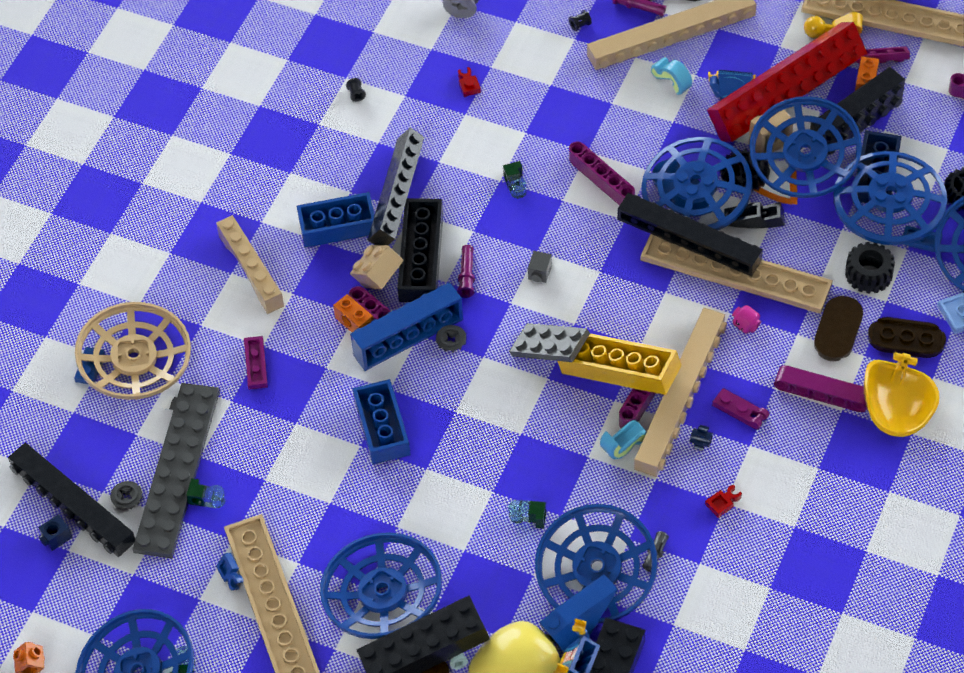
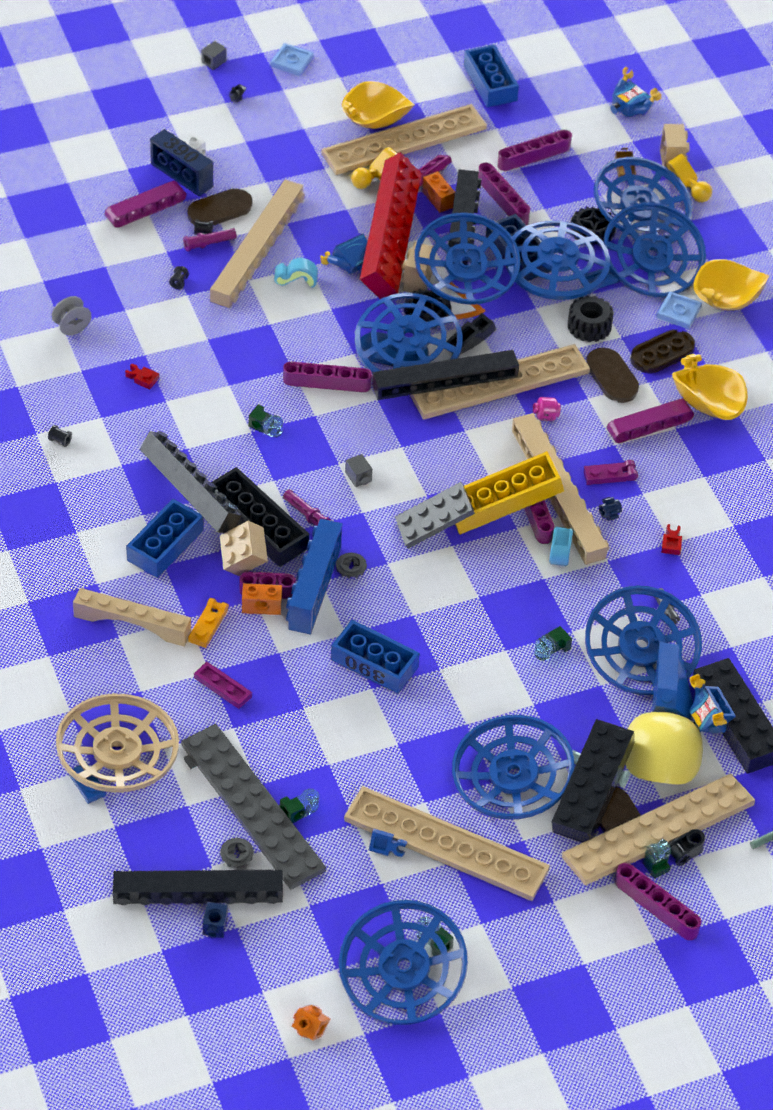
camera: 50 degrees left, 5 degrees down
(301, 307) = (208, 623): none -> light orange plate
(921, 114) = (503, 192): none -> magenta beam

